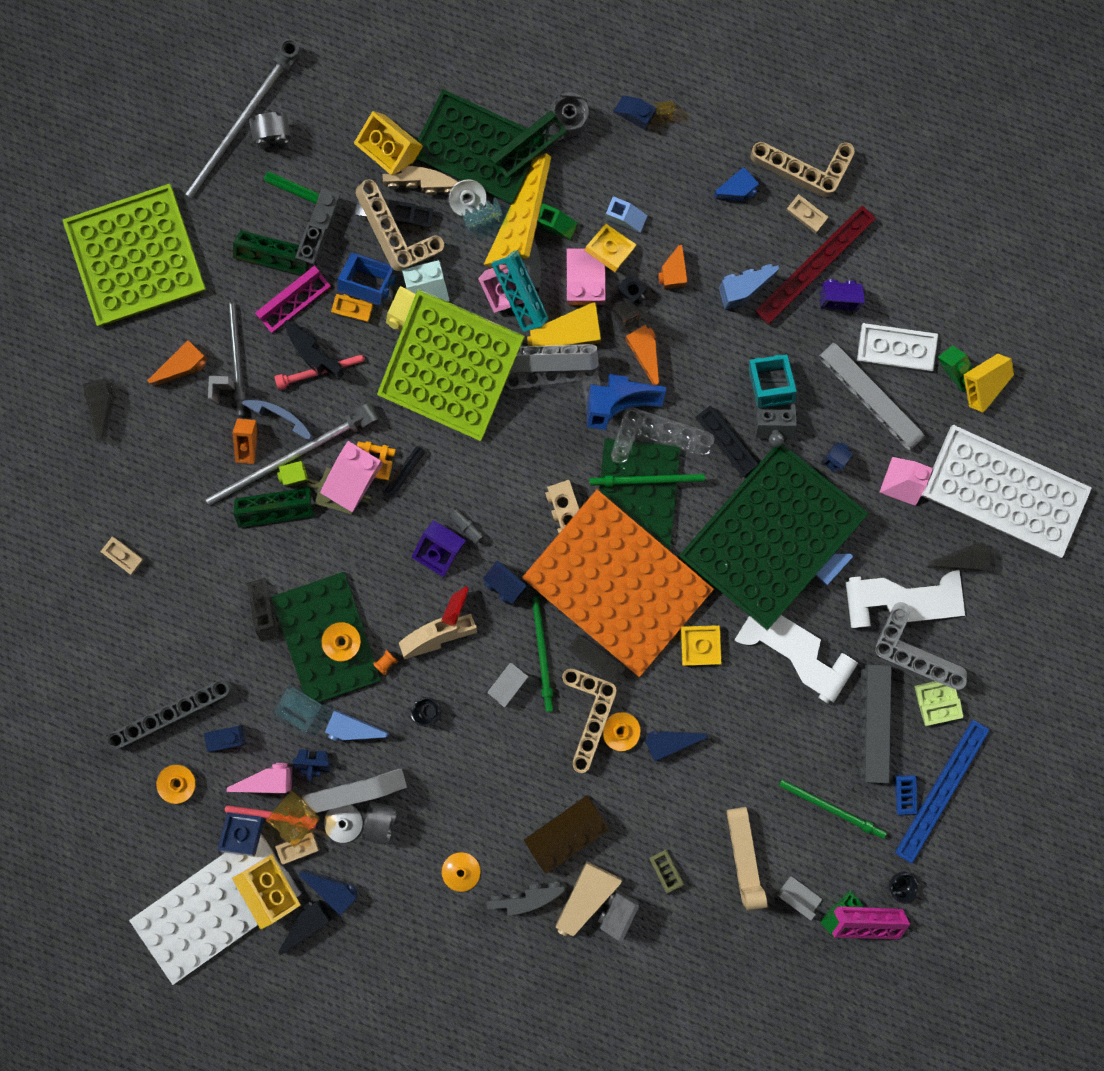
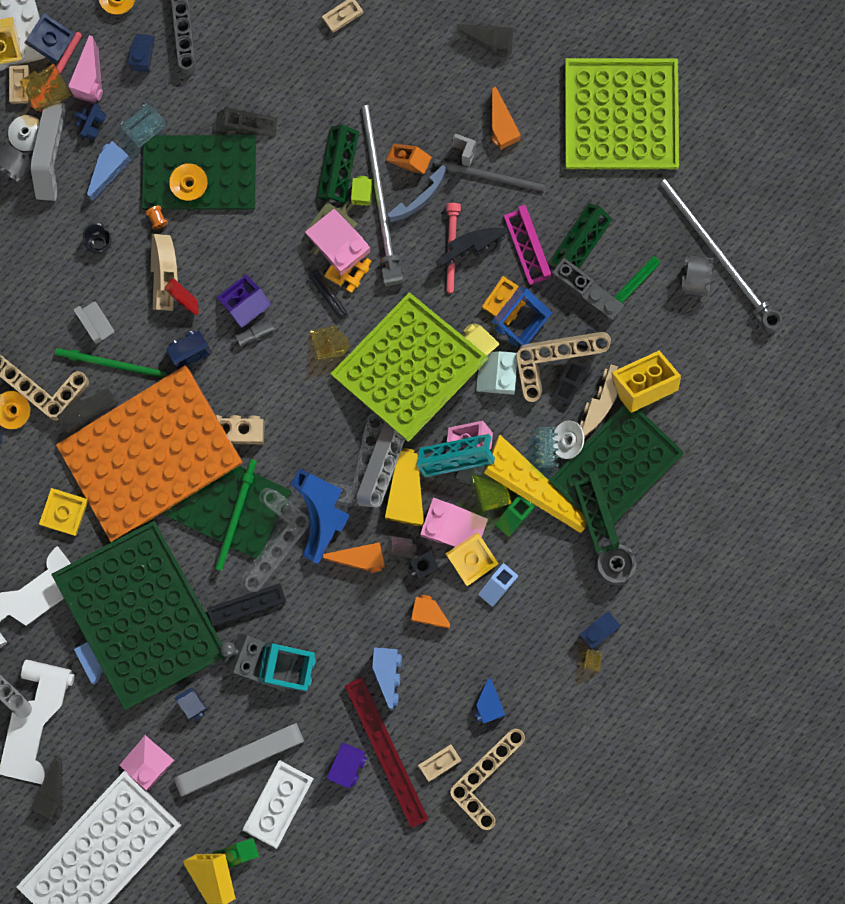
camera: 110 degrees right, 5 degrees down
(452, 452) = (329, 343): none -> clear yellow slope
(546, 249) = (490, 494): none -> clear neon green slope

